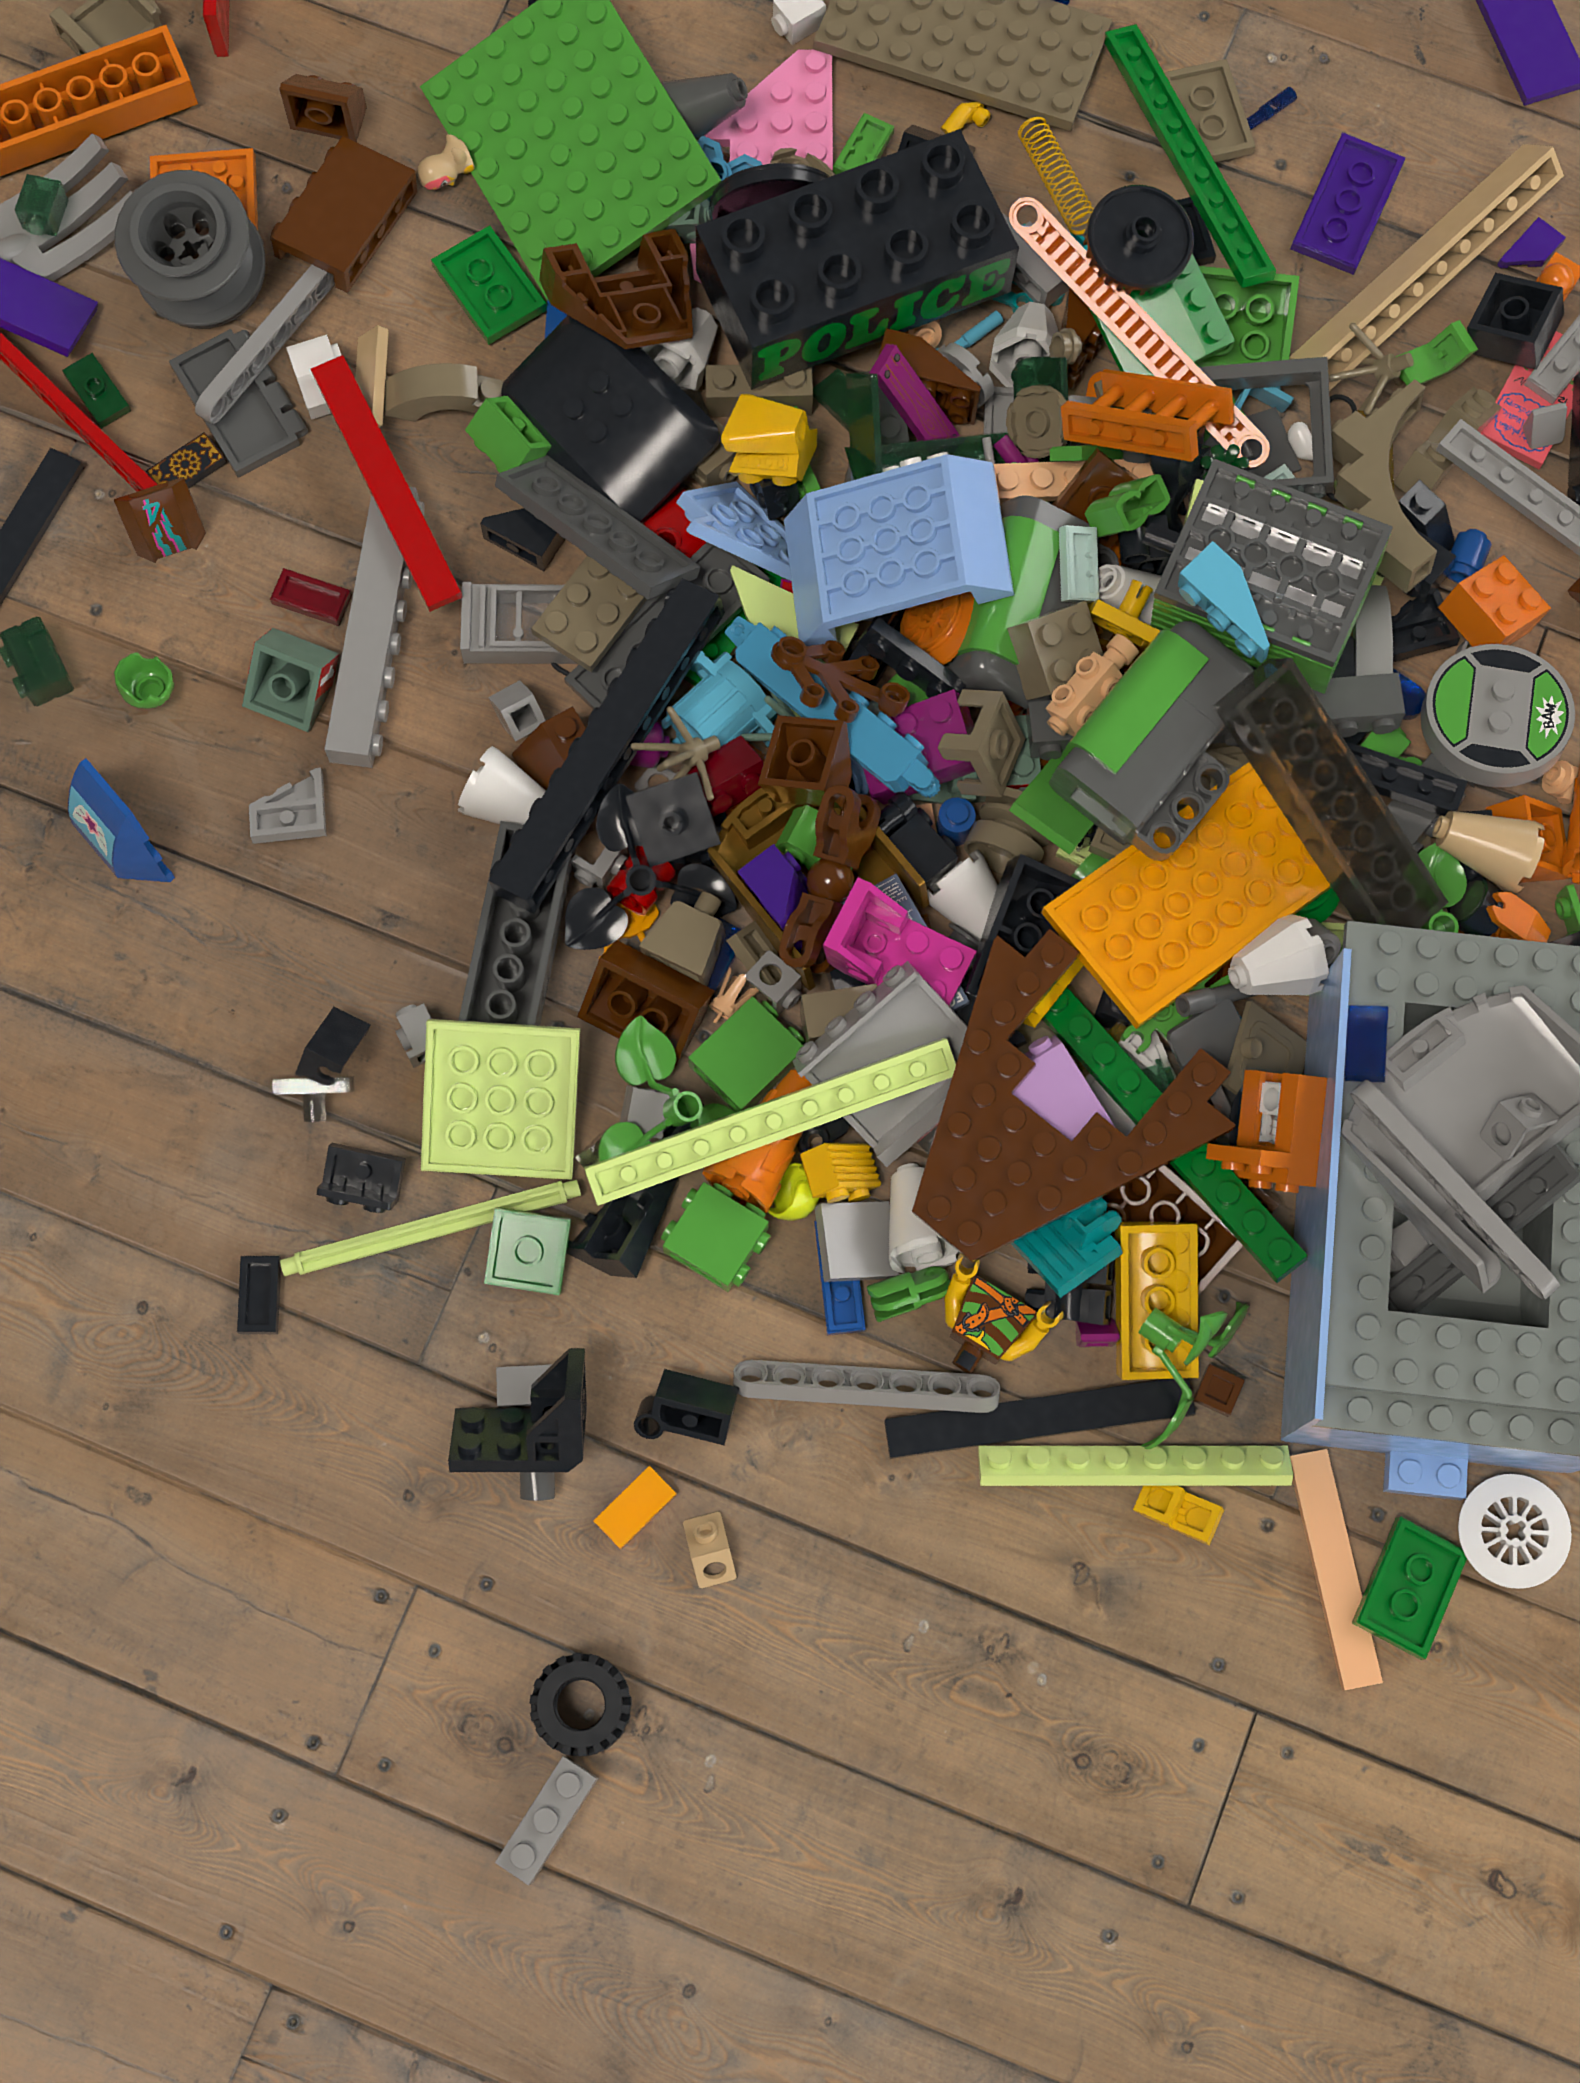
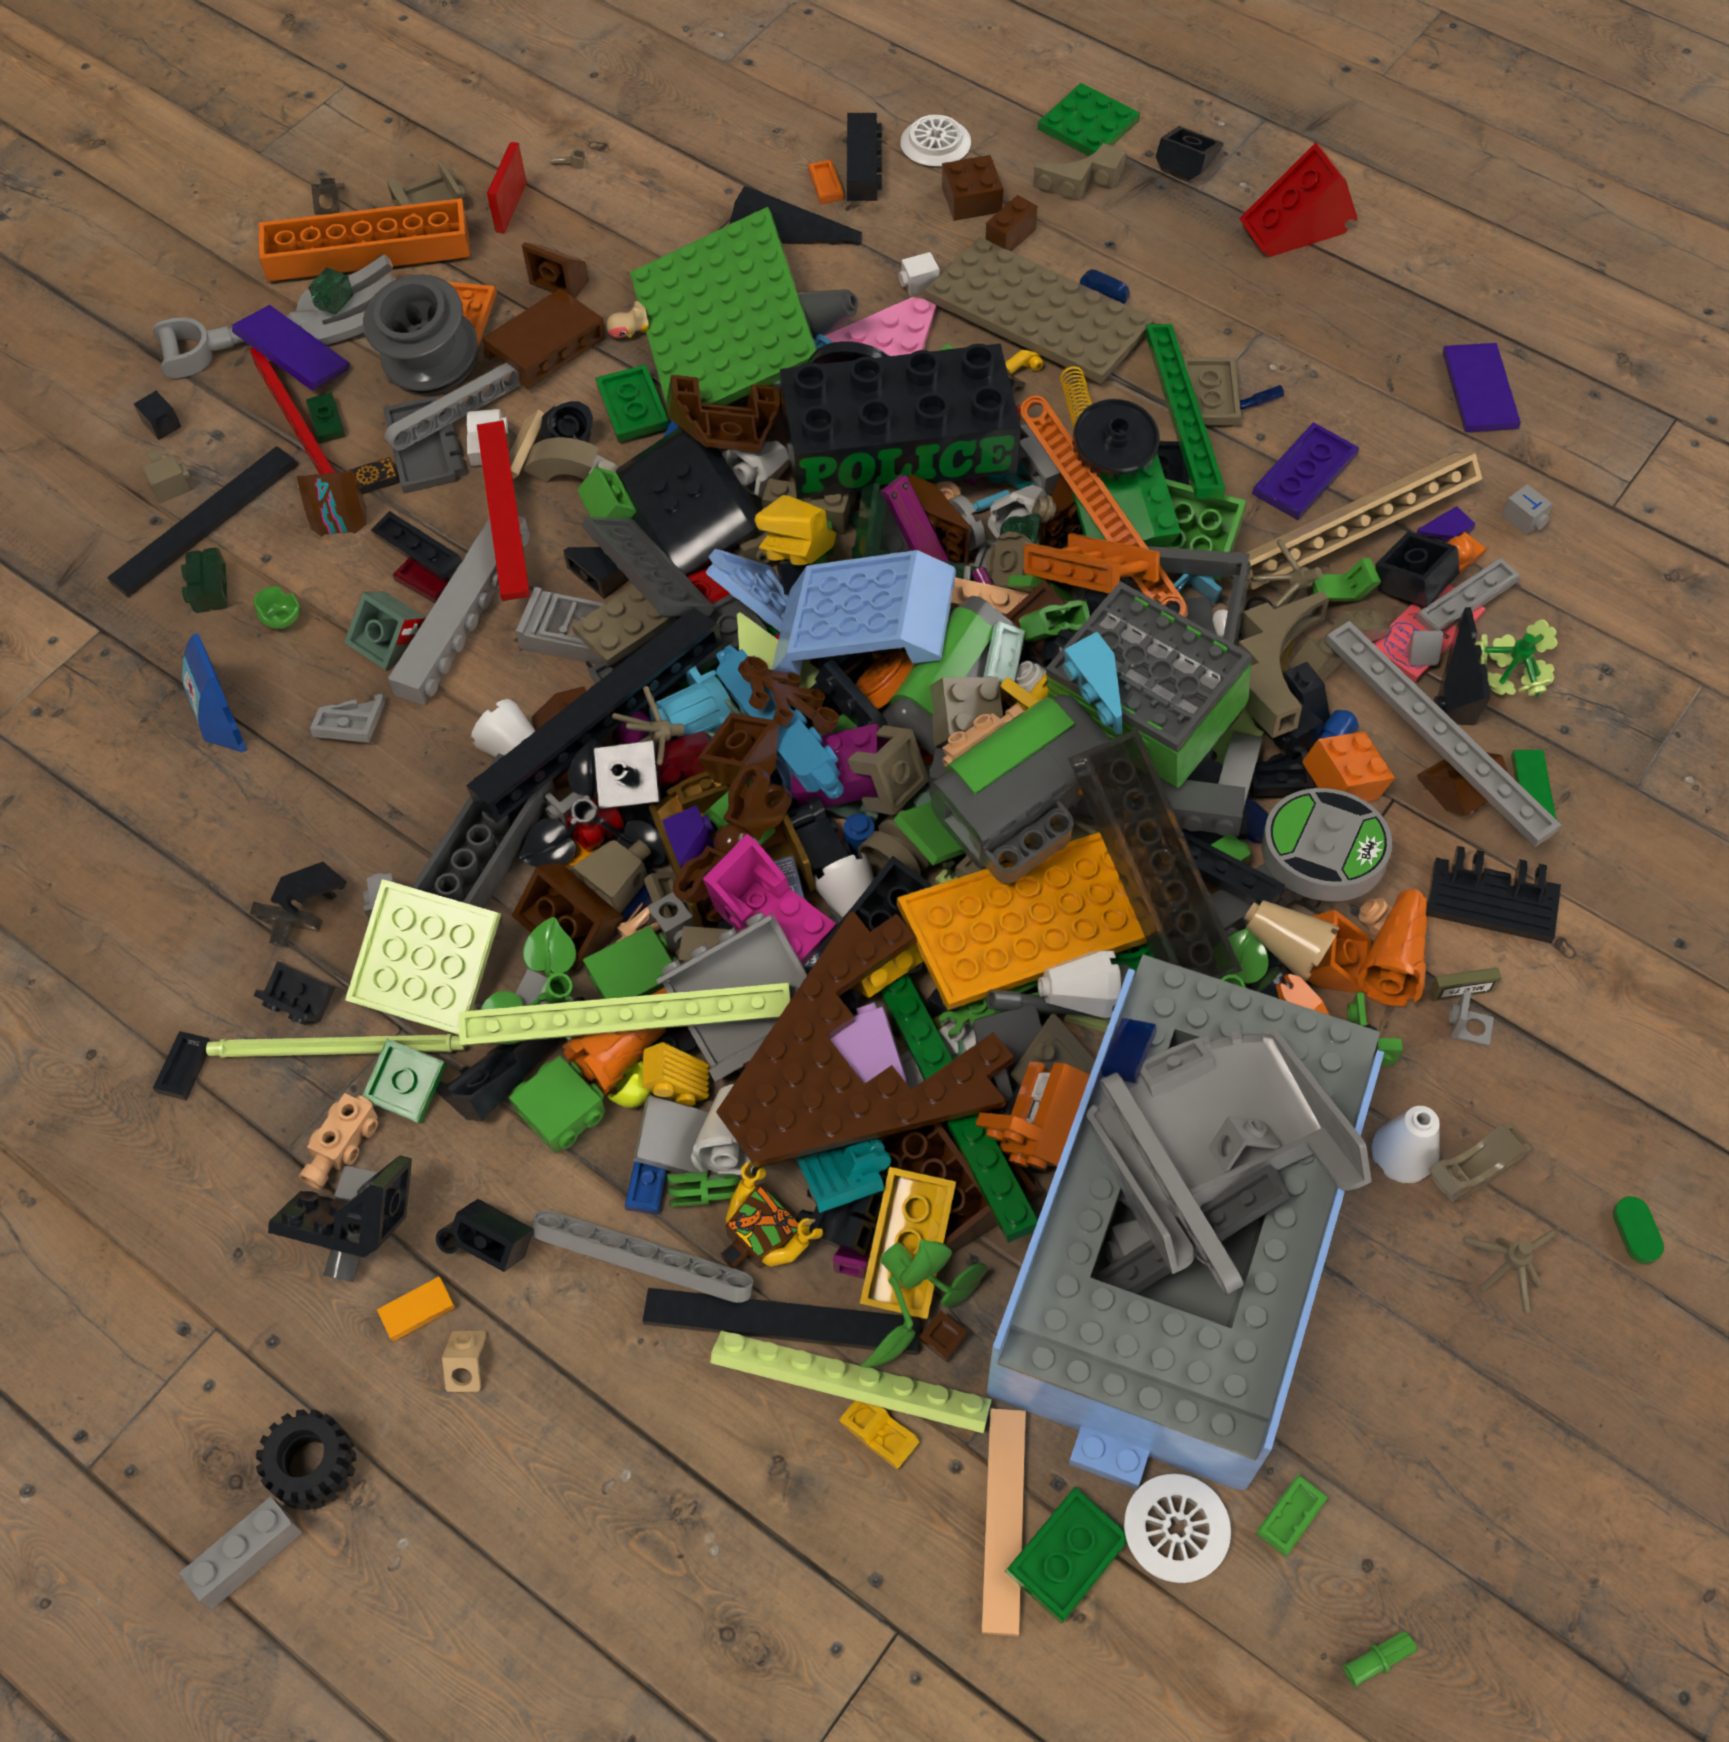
camera: 20 degrees right, 15 degrees down
(289, 555) = (416, 545): none -> black plate
(420, 338) = (567, 421): none -> black hat
(483, 1327) = (348, 1133): none -> light nougat brick
(517, 710) = (543, 683): light grey brick -> none

